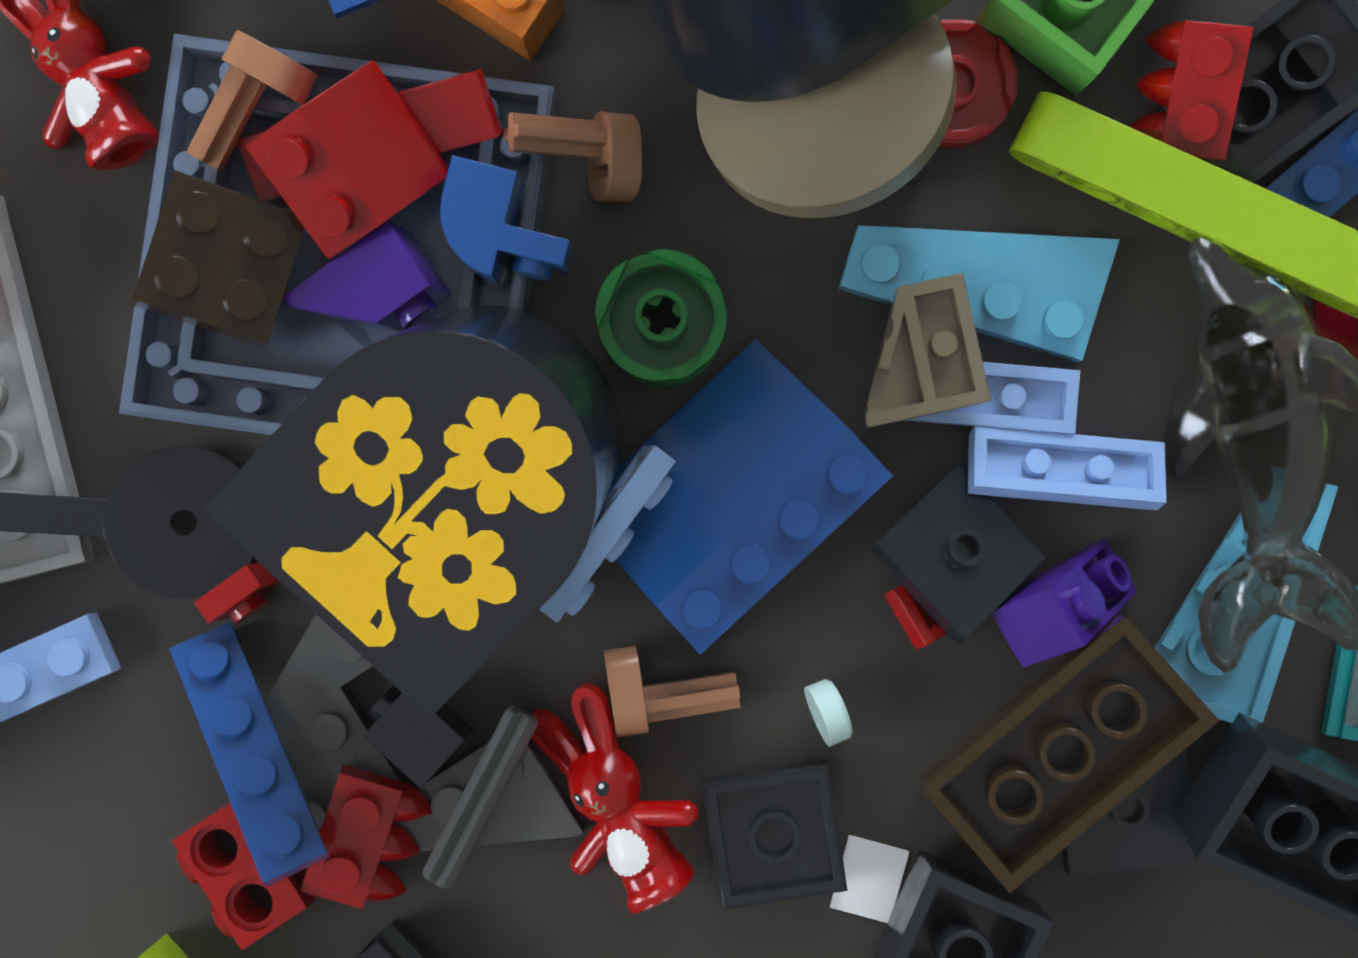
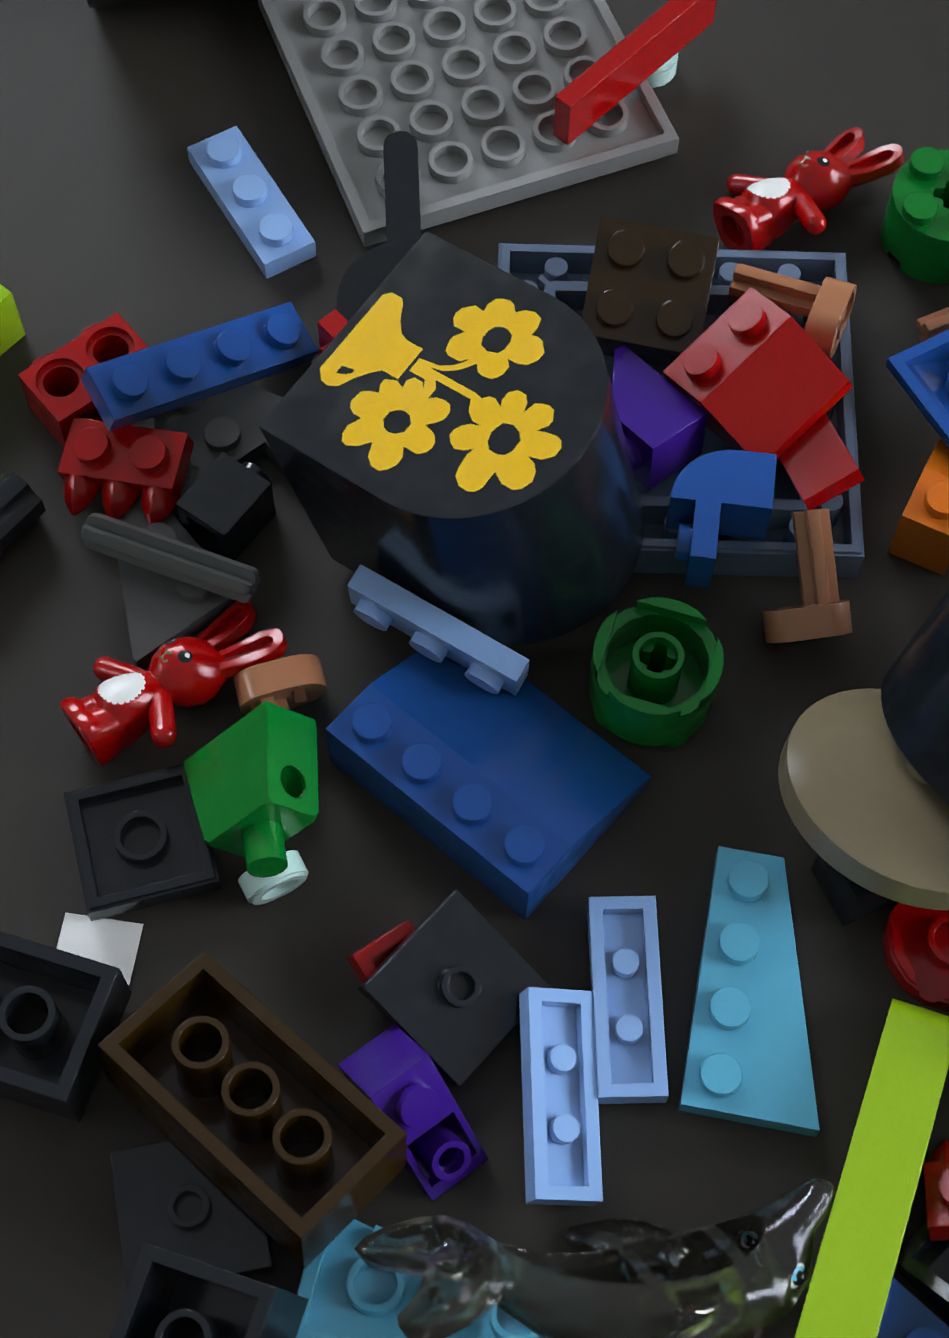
camera: 80 degrees right, 25 degrees down
(755, 726) = (257, 786): none -> green torso
(927, 355) = (659, 922): dark tan wing -> none

